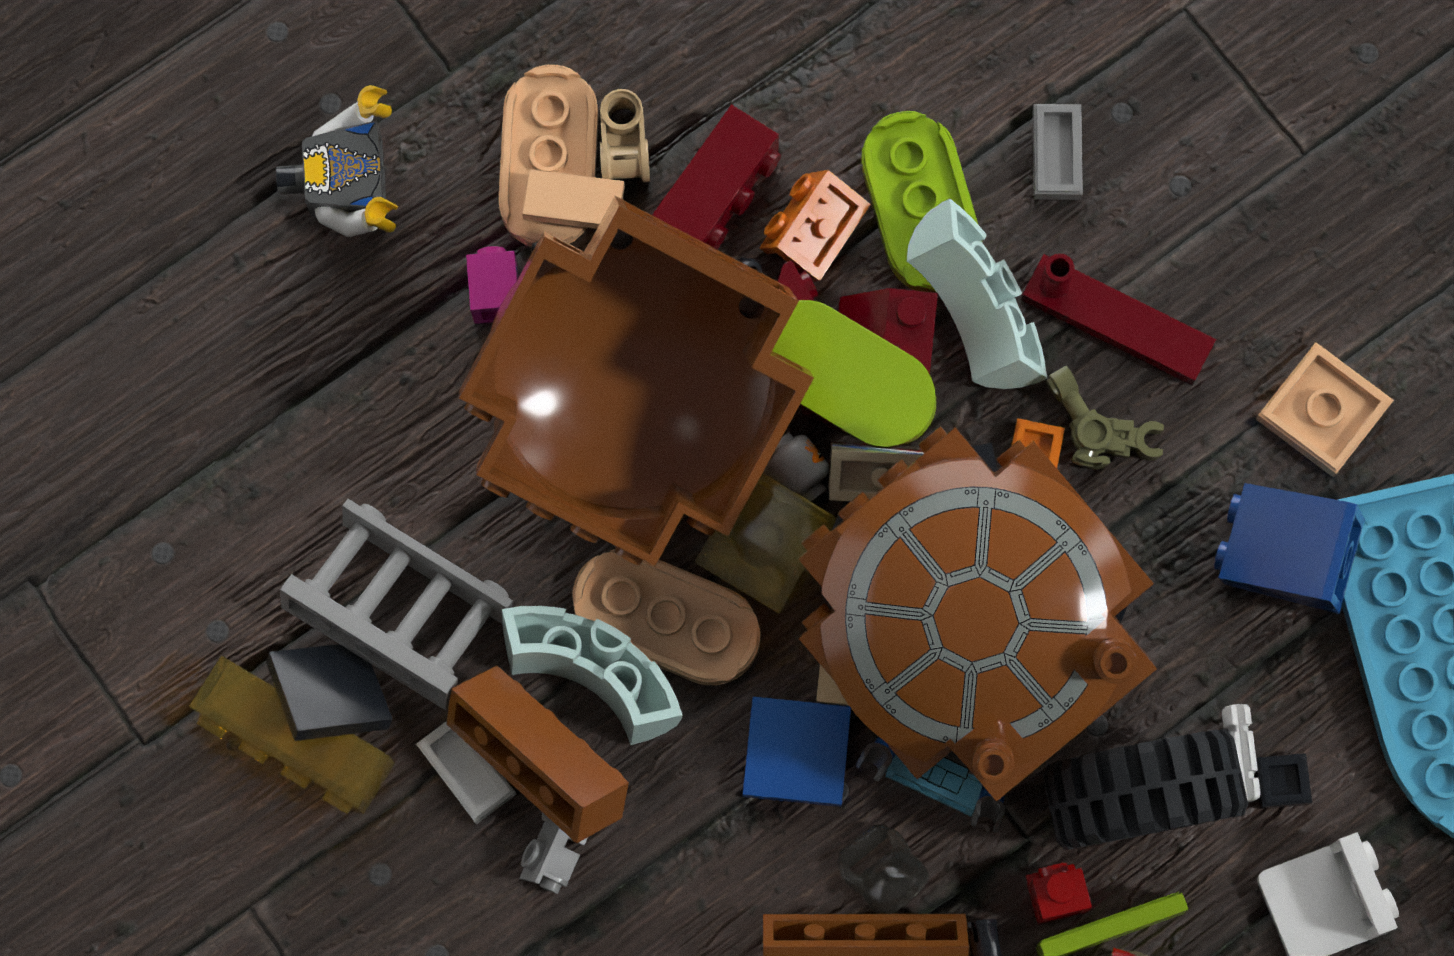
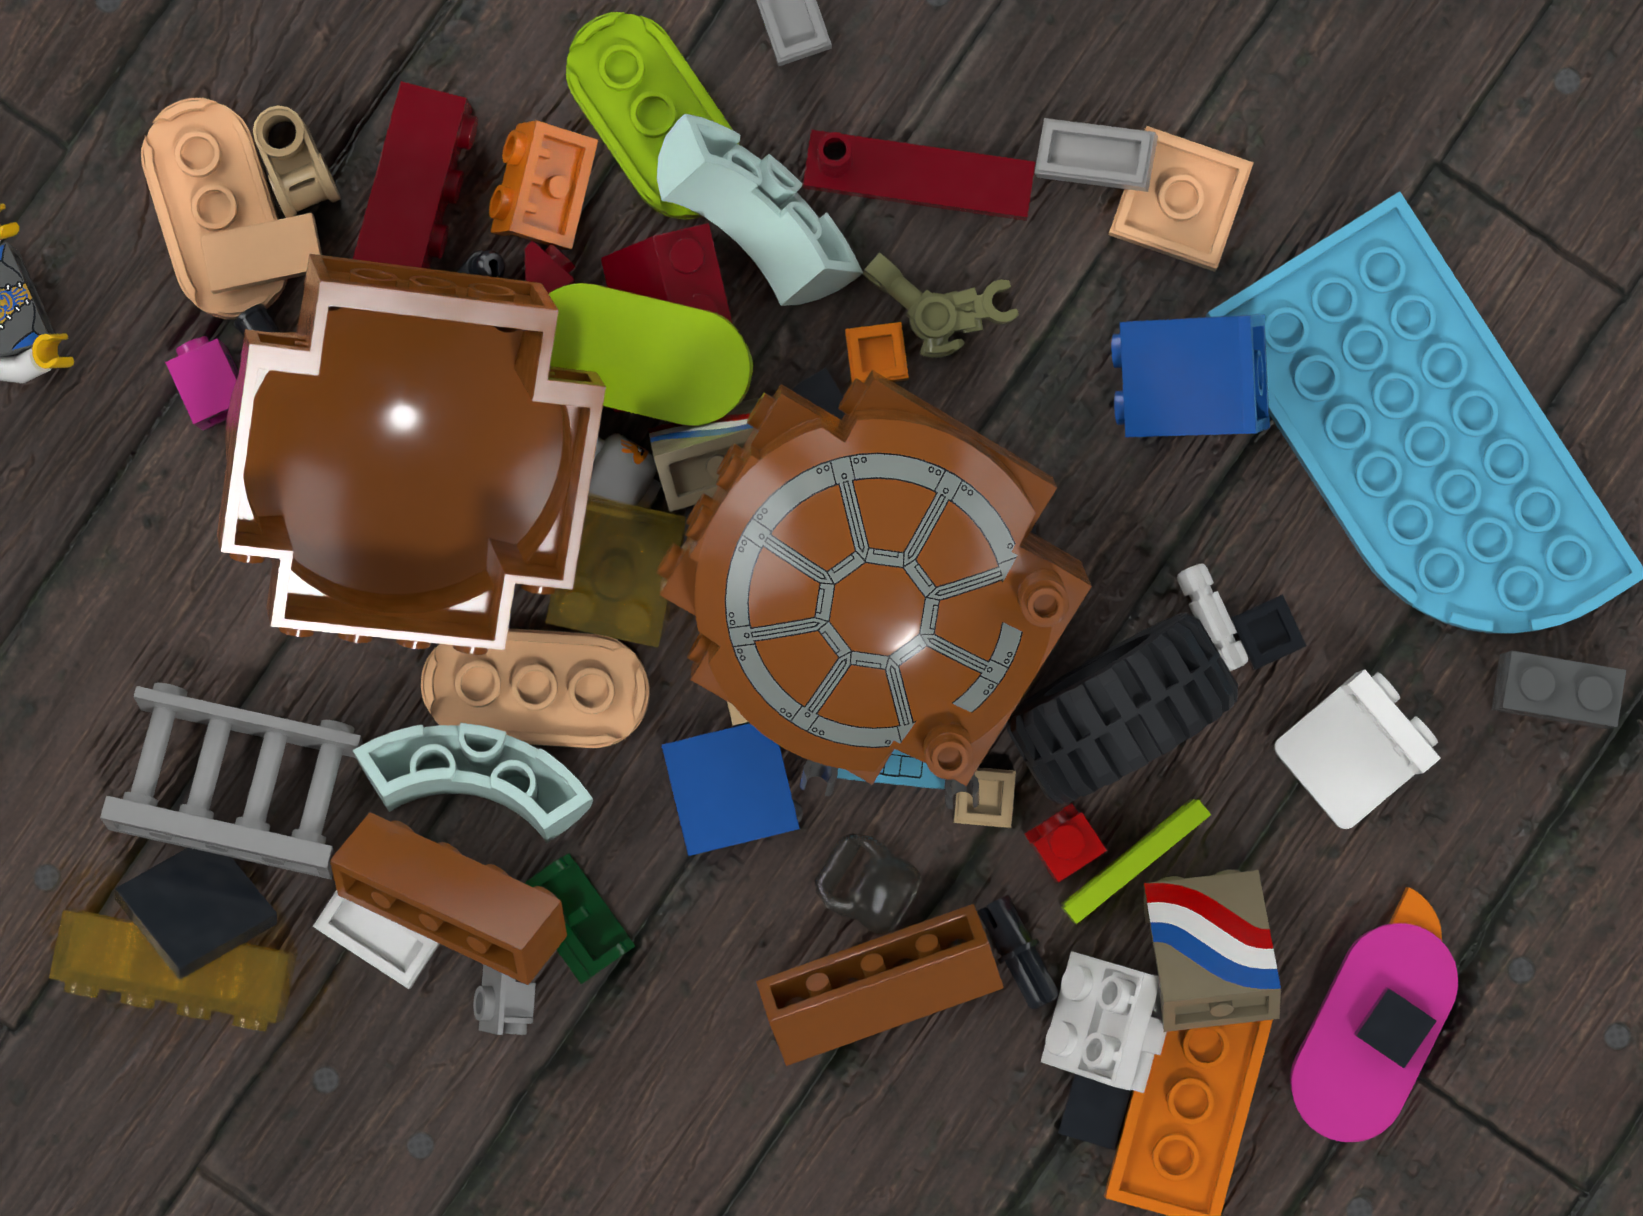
camera: 15 degrees left, 10 degrees up
(641, 830) = (592, 929): none -> dark green hinge
(1009, 841) = (995, 802): none -> tan tile
(1267, 350) = (1096, 154): none -> light grey tile

